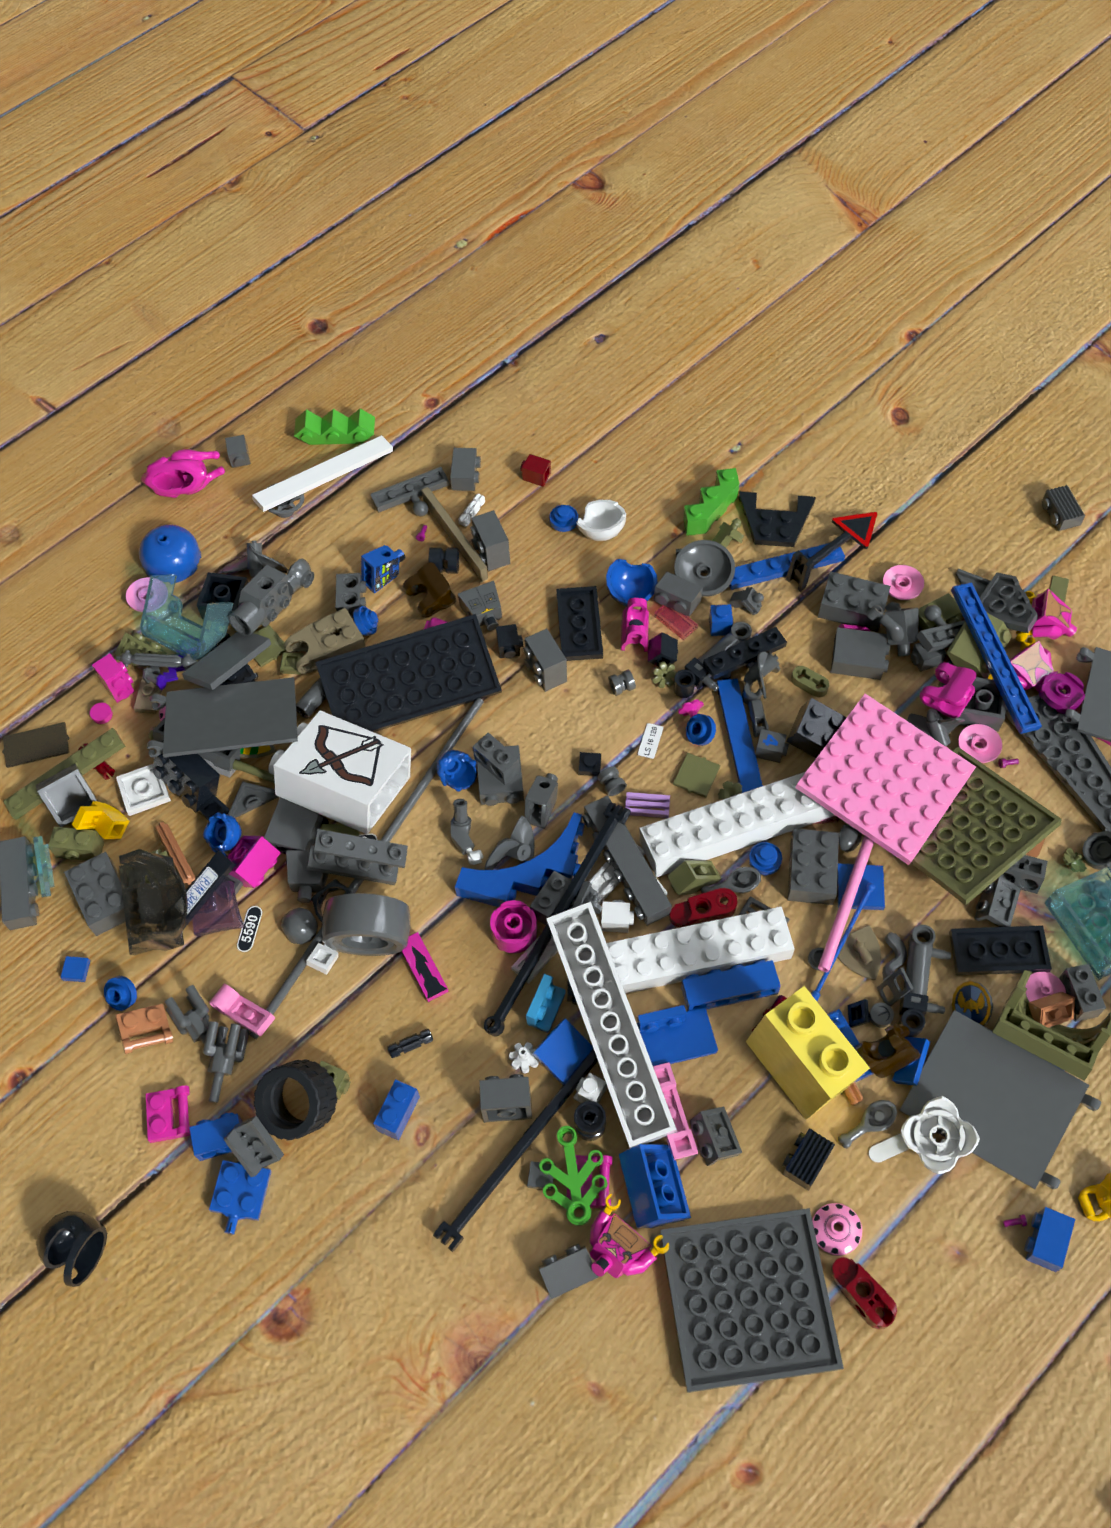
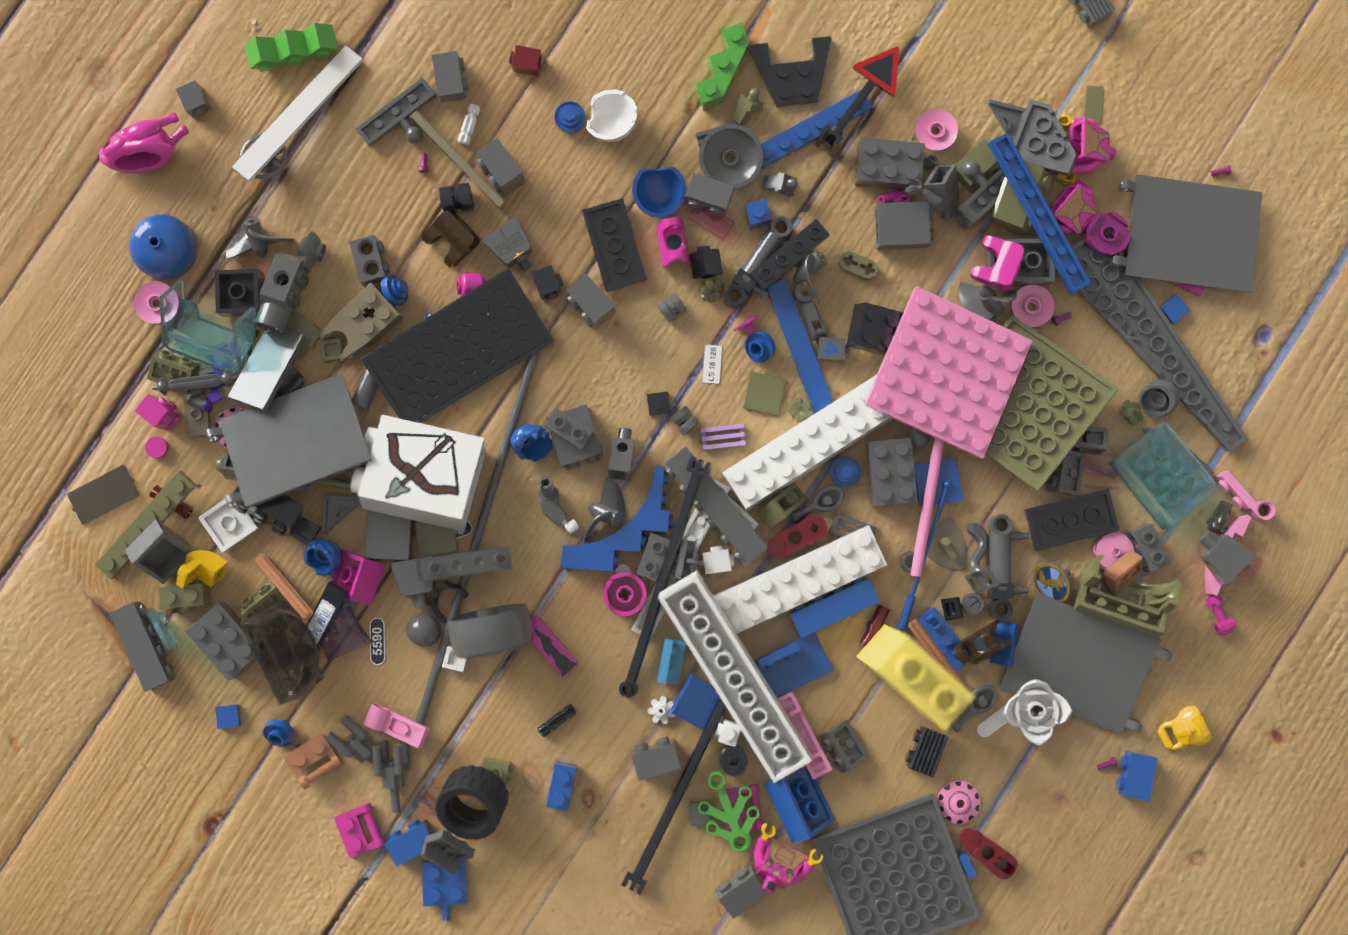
camera: 15 degrees left, 25 degrees up
(380, 567) = (393, 220): blue torso -> none
(836, 1301) = (966, 865): none -> blue tile

